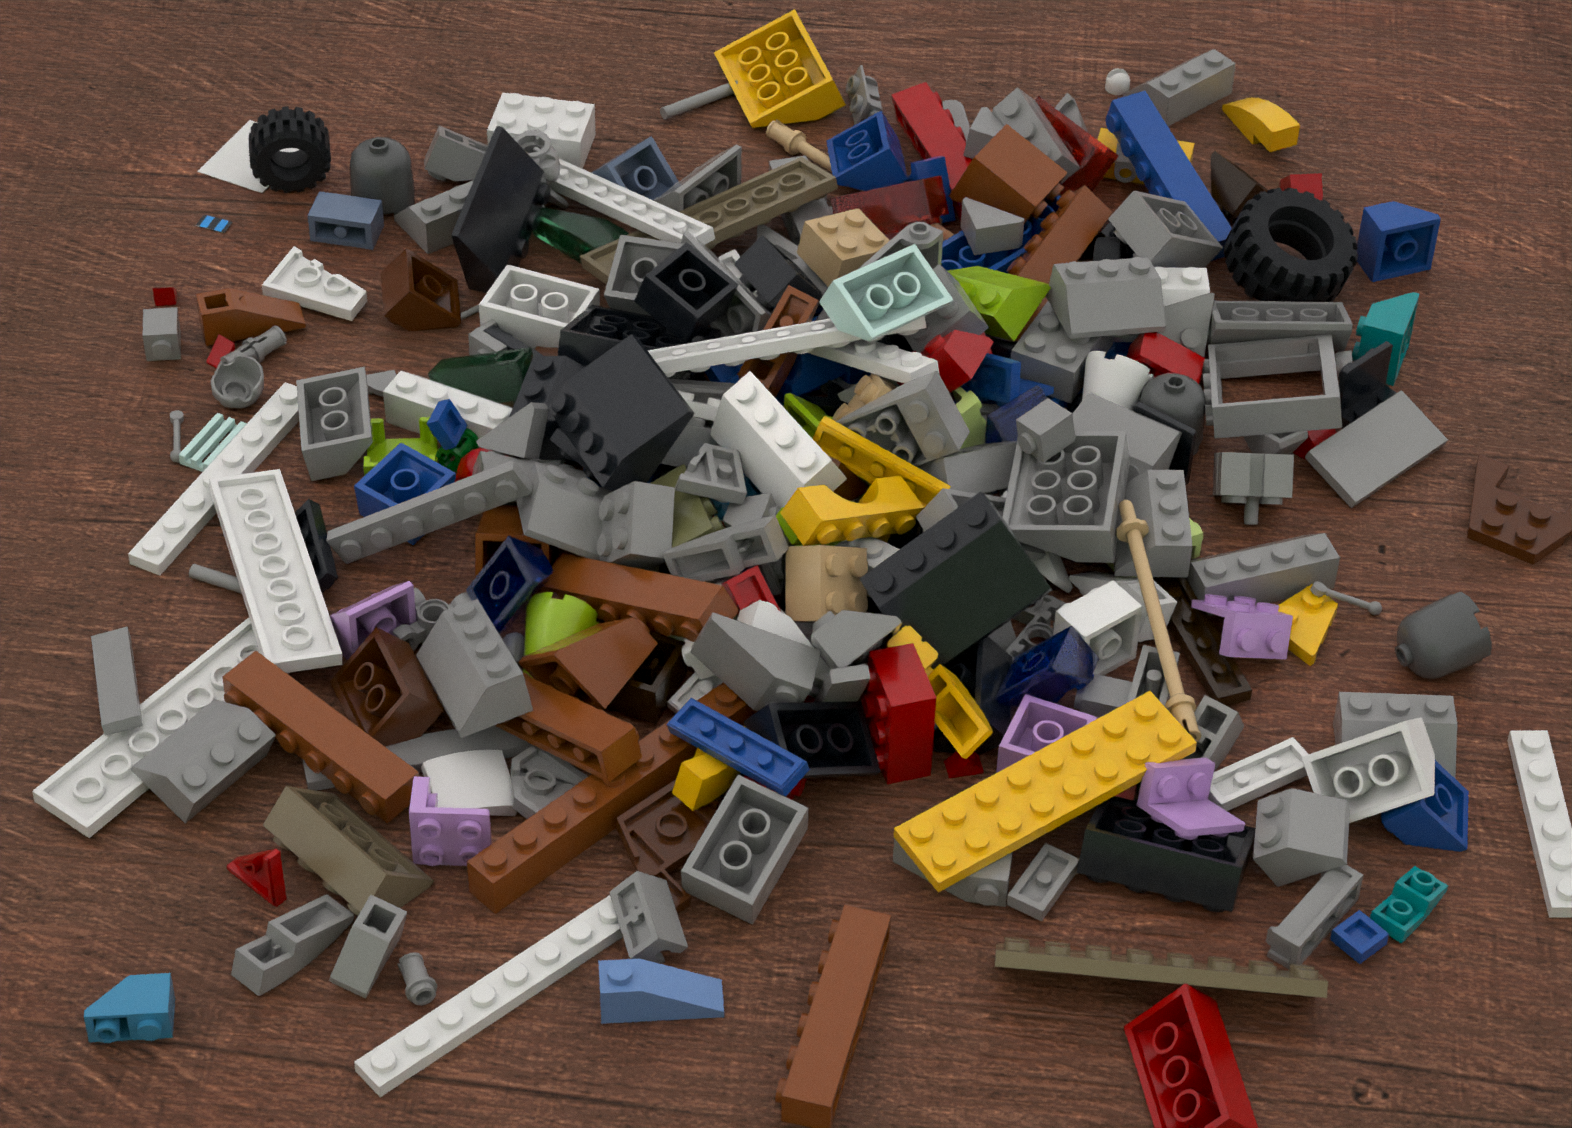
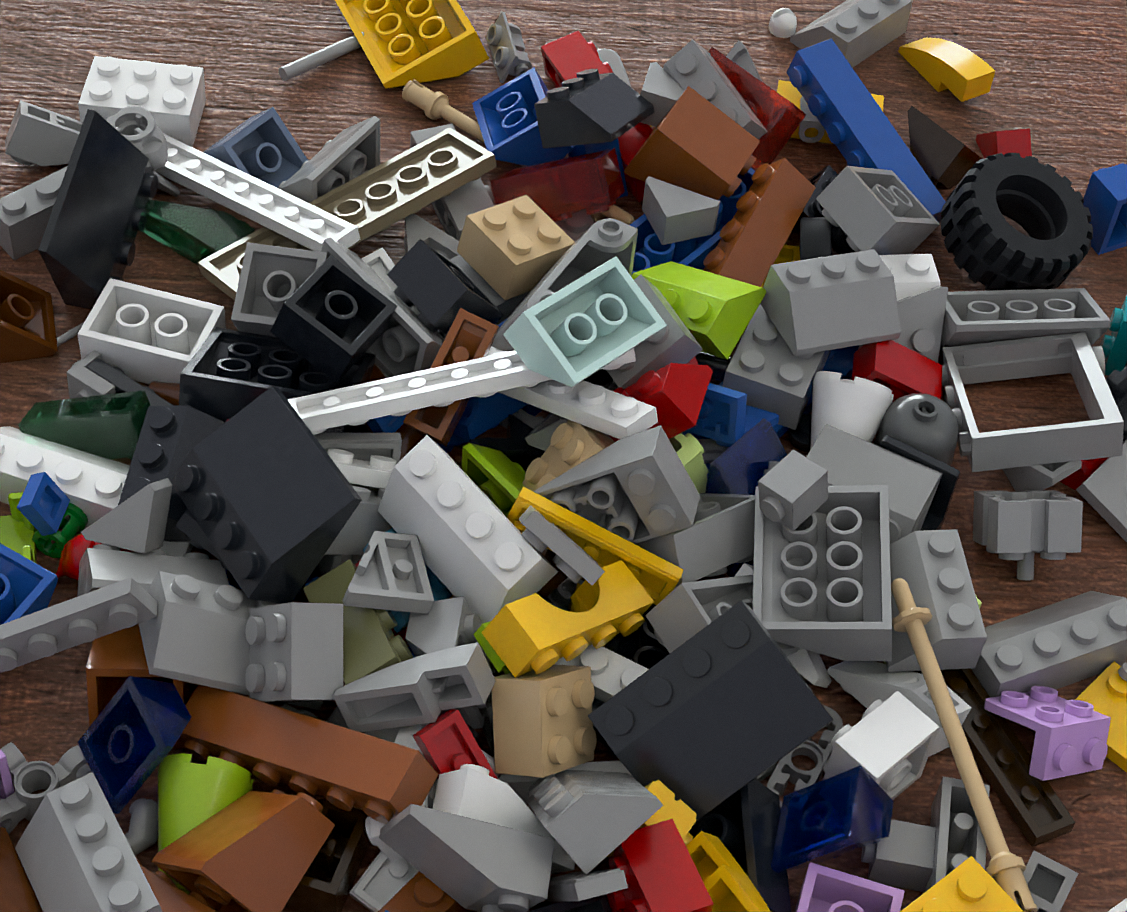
camera: 10 degrees left, 5 degrees up
(857, 466) = (569, 556): none -> light grey plate
(920, 142) = (589, 110): none -> black slope

